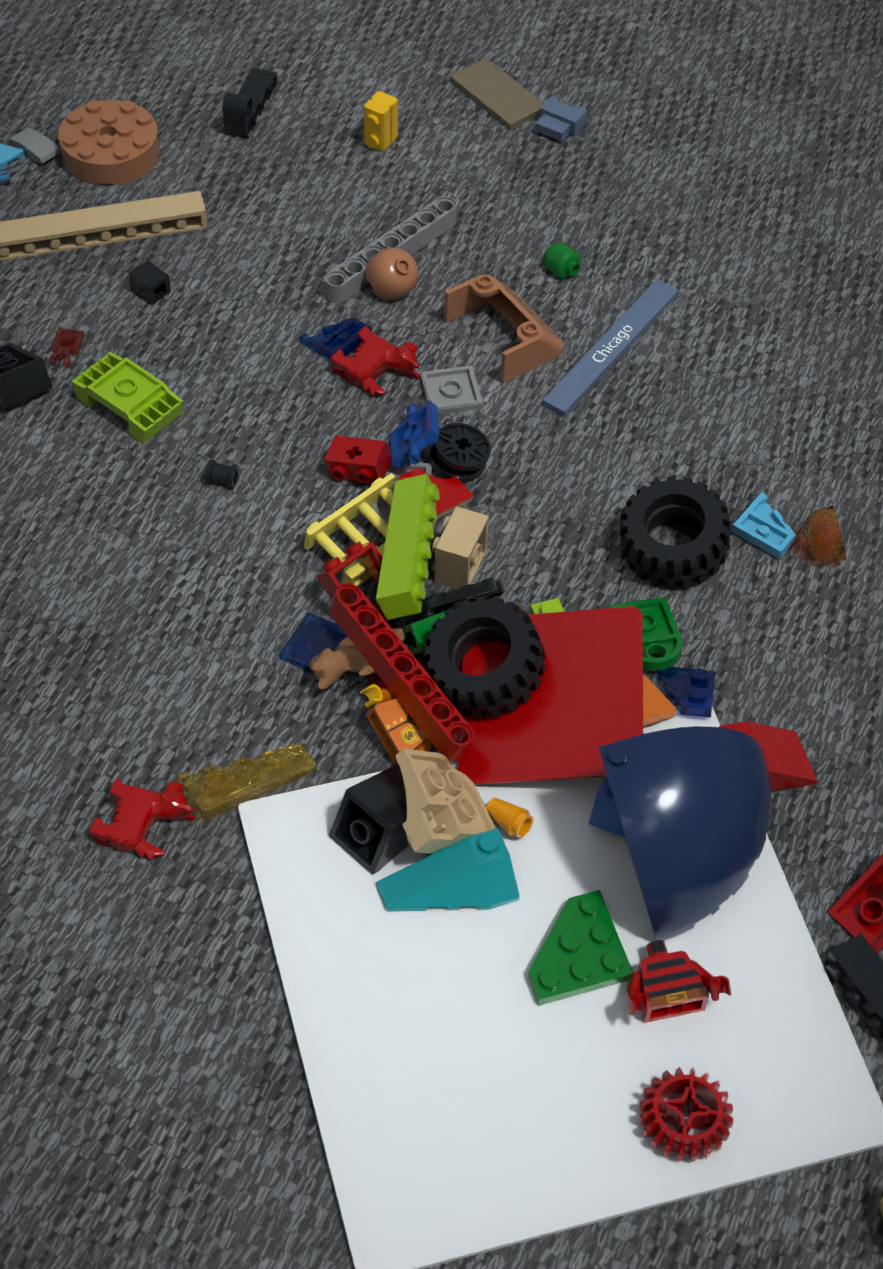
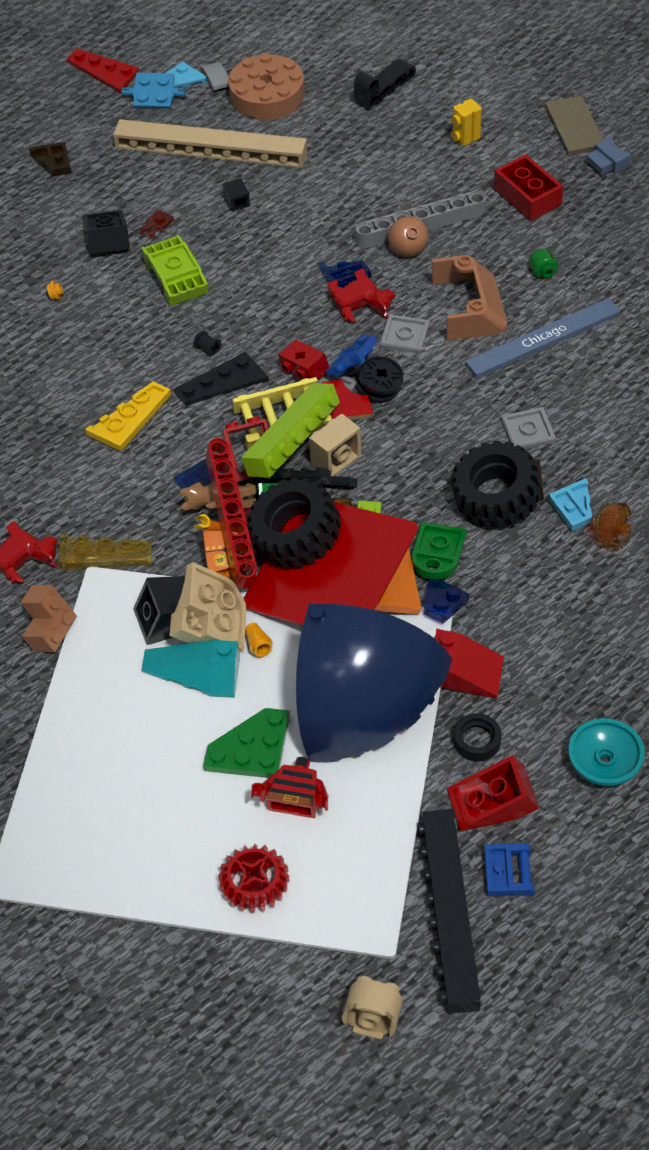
camera: 30 degrees right, 0 degrees up
(178, 598) = (129, 417): none -> yellow wing
(235, 887) = (50, 618): none -> nougat brick
(264, 513) = (226, 377): none -> black wing
(494, 177) = (528, 187): none -> red brick
(659, 455) = (529, 428): none -> light grey tile
(818, 856) = (481, 753): none -> black tyre

